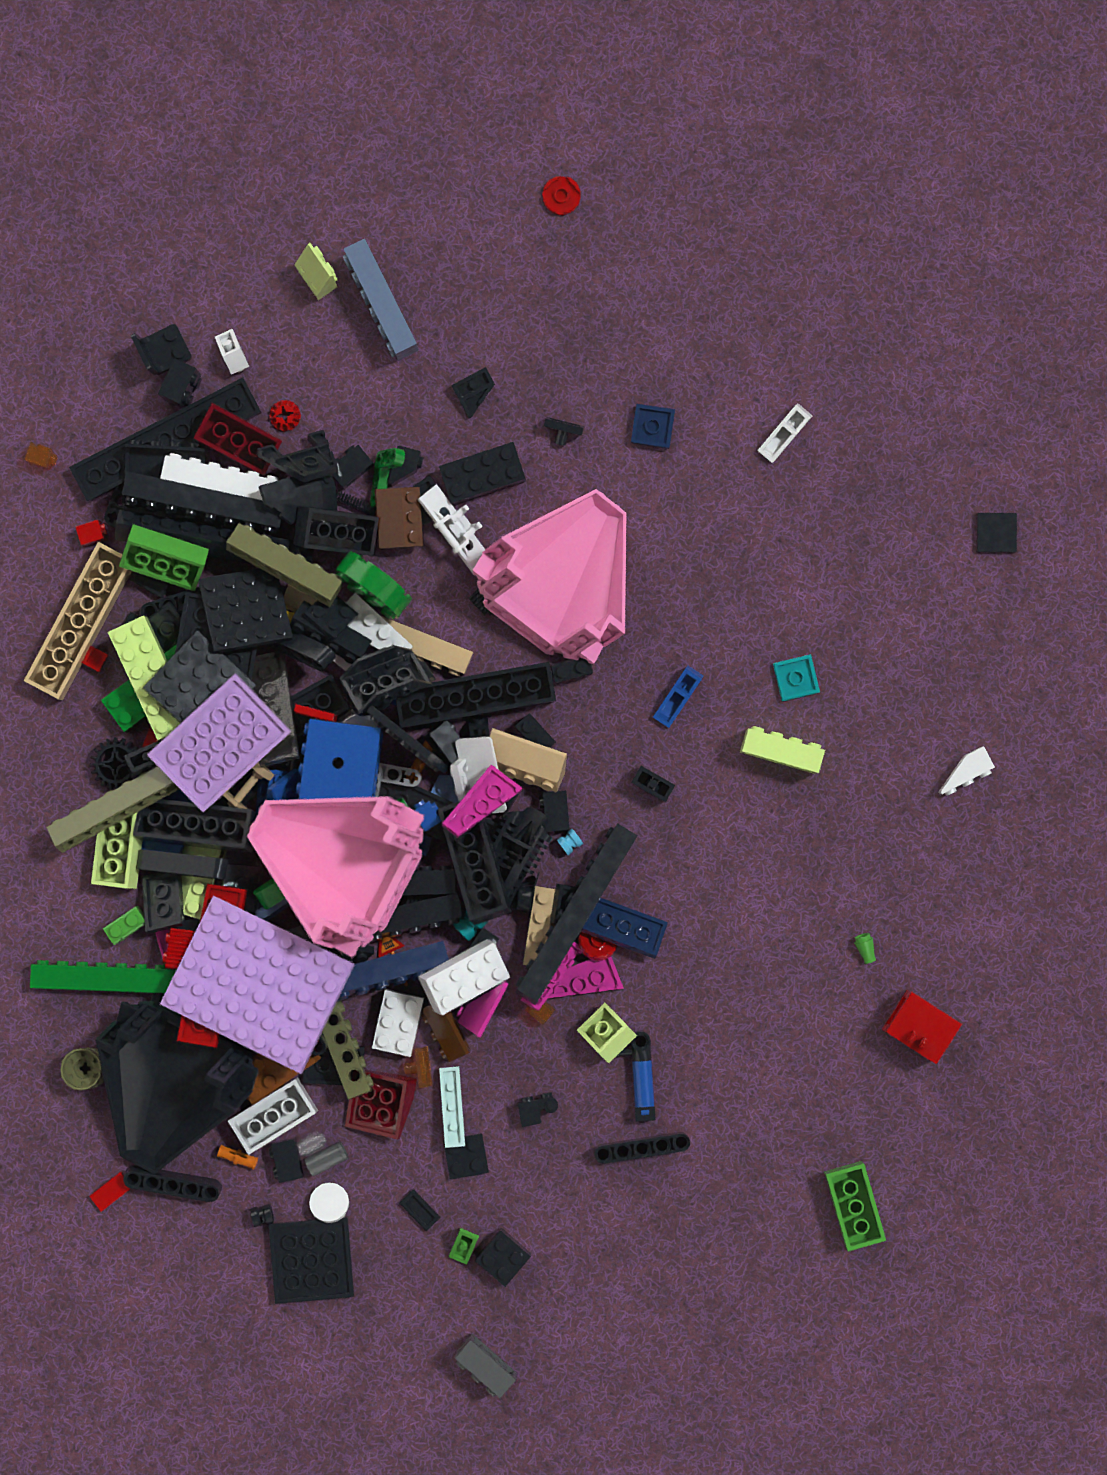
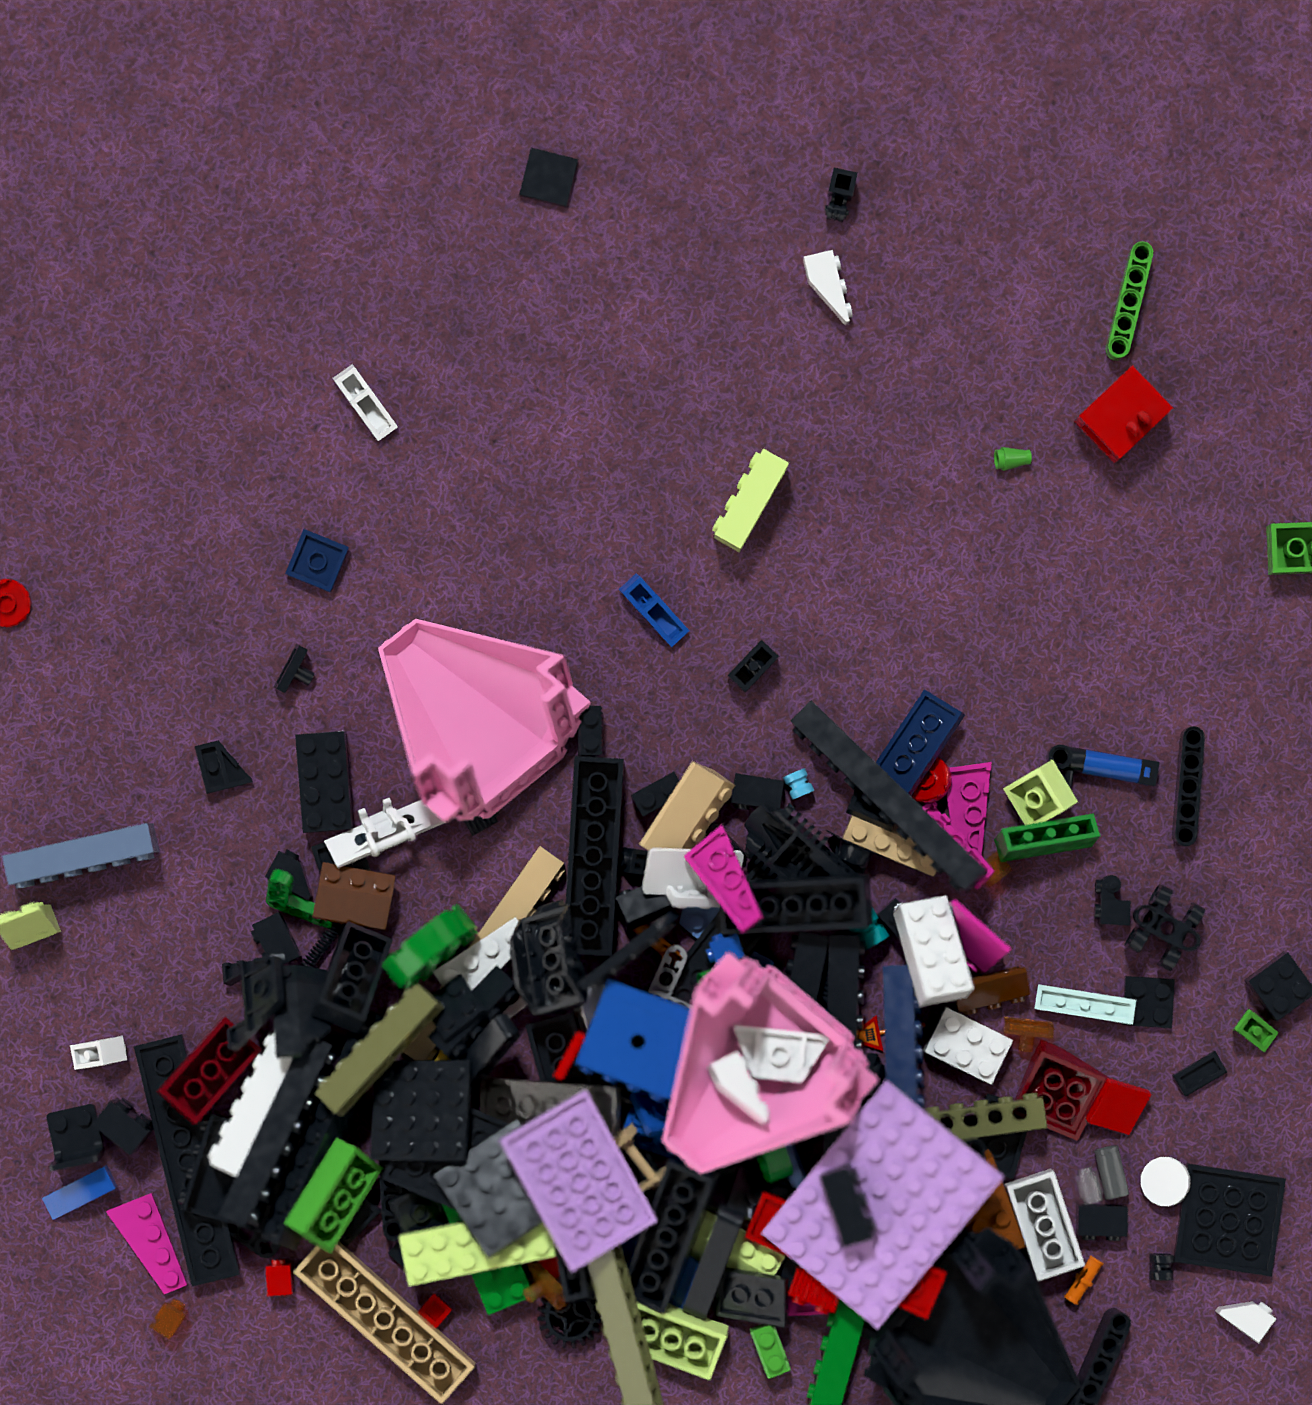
camera: 80 degrees left, 0 degrees up
(100, 424) = (148, 1237): none -> dark pink wing
(121, 364) = (79, 1192): none -> blue slope
(133, 737) = (544, 1286): none -> clear orange tile
(238, 1293) = (1249, 1318): none -> white slope
(250, 957) = (848, 1204): none -> black brick
(293, 419) = (201, 997): red gear -> none
(323, 846) = (734, 1083): none -> white slope
(355, 875) = (779, 1053): none -> white wing
(378, 1152) = (1118, 1106): none -> red tile
(527, 1167) = (1175, 939): none -> black piece
(574, 1045) = (1047, 837): none -> green brick
(796, 677) = (665, 461): teal tile -> none
(1021, 1014) = (1132, 289): none -> bright green beam
(1042, 763) = (840, 191): none -> black brick

